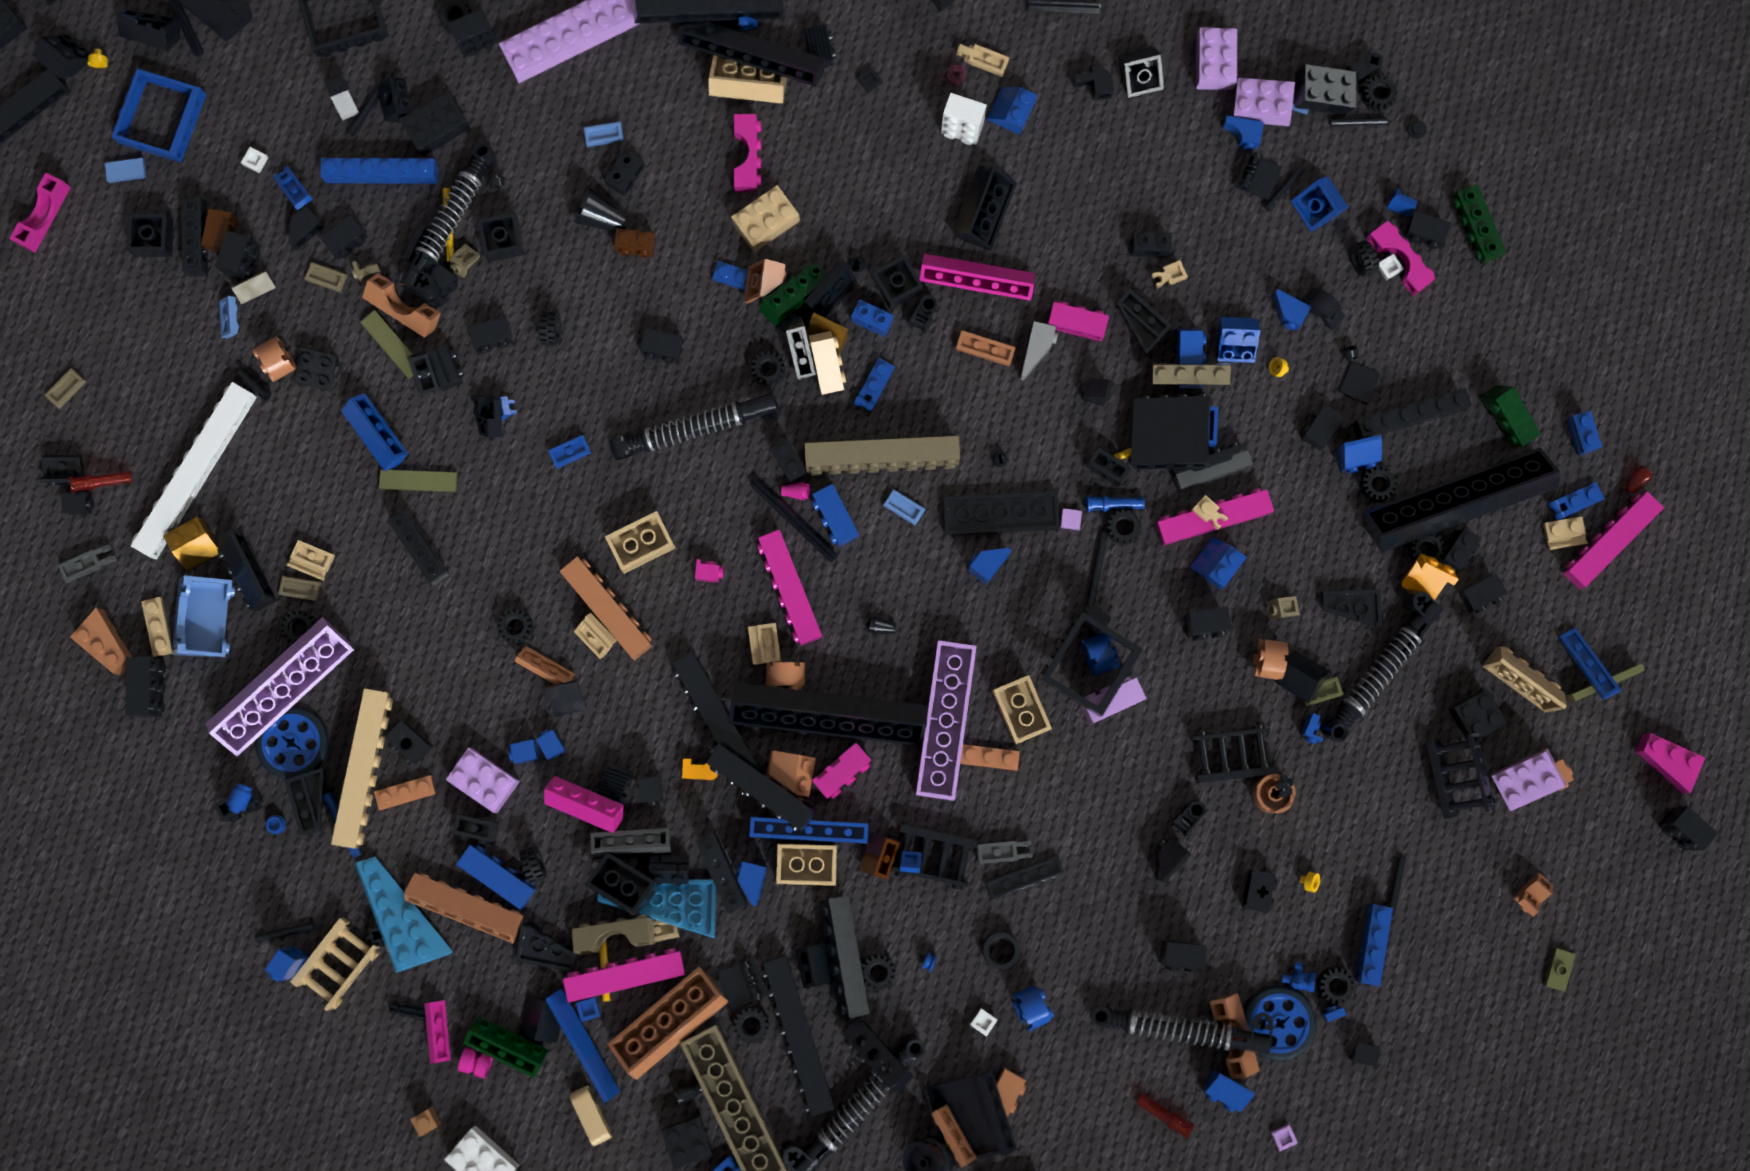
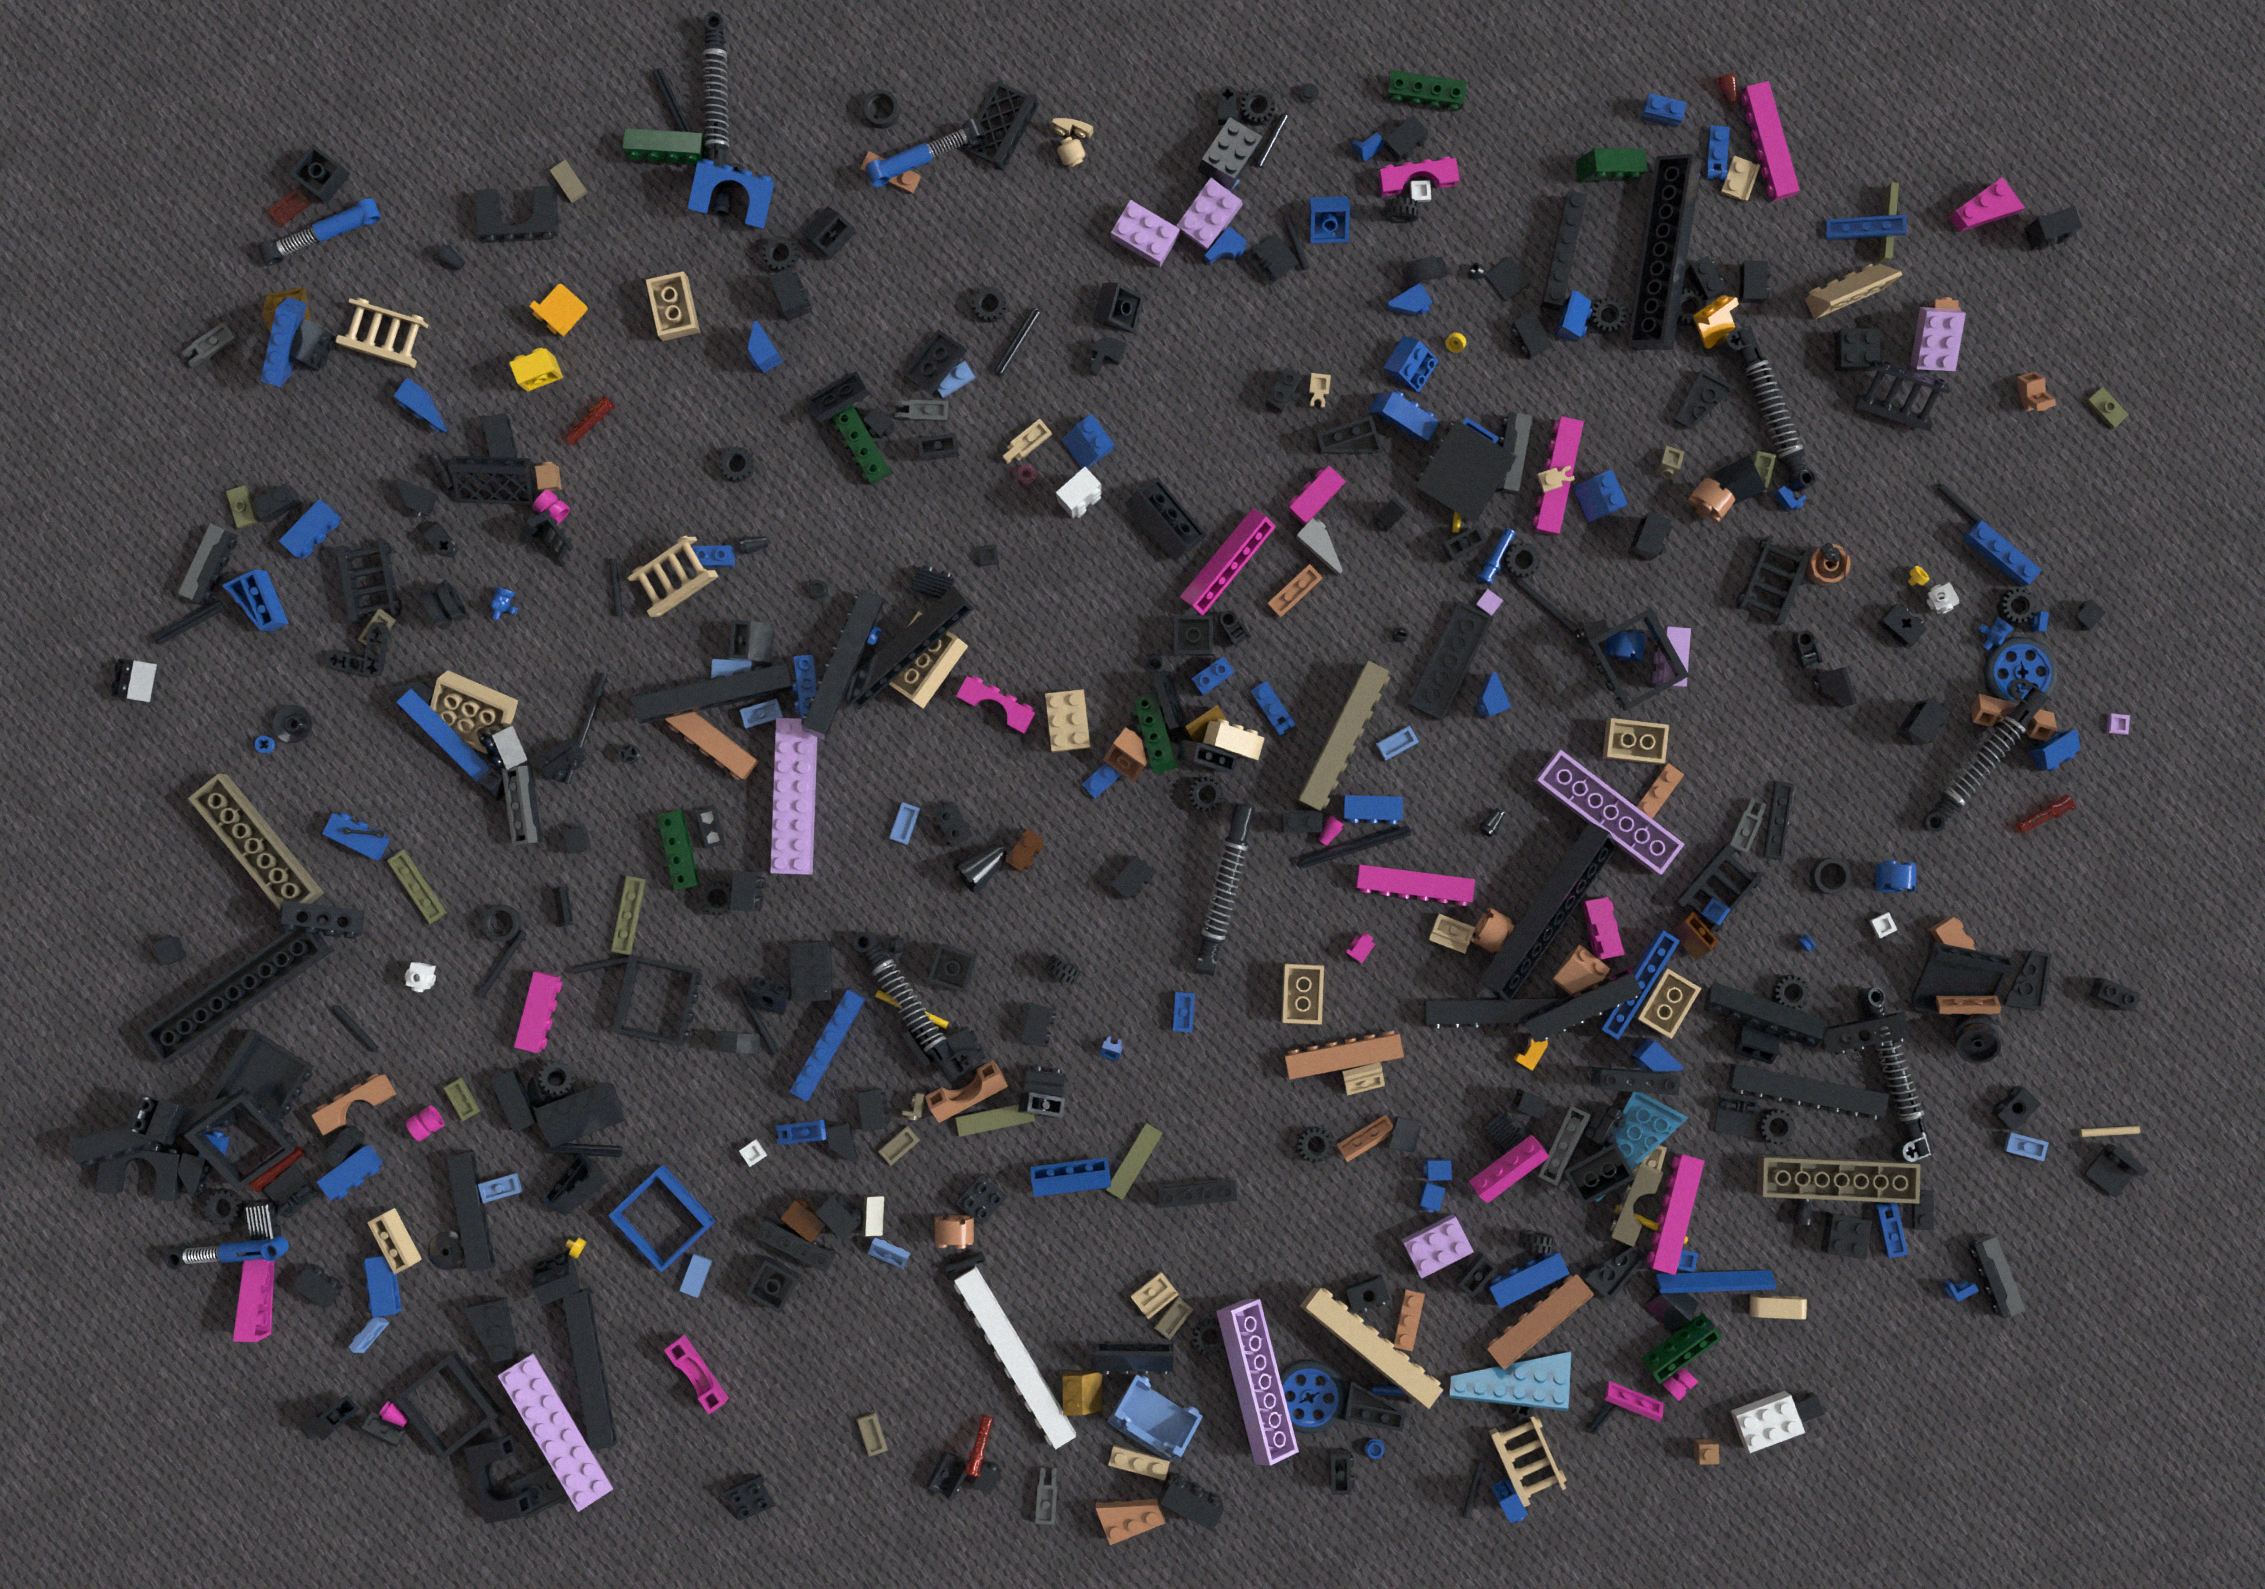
camera: 60 degrees left, 5 degrees up
(239, 798) = (1341, 1468): blue brick -> none
(463, 260) = (953, 1013): dark tan bracket -> none
(488, 415) = (1110, 1067): black slope -> none
(667, 1023) = (1738, 1198): nougat brick -> none
(1191, 373) = (1432, 409): dark tan arch -> none
(1303, 913) = (1942, 598): none -> white brick

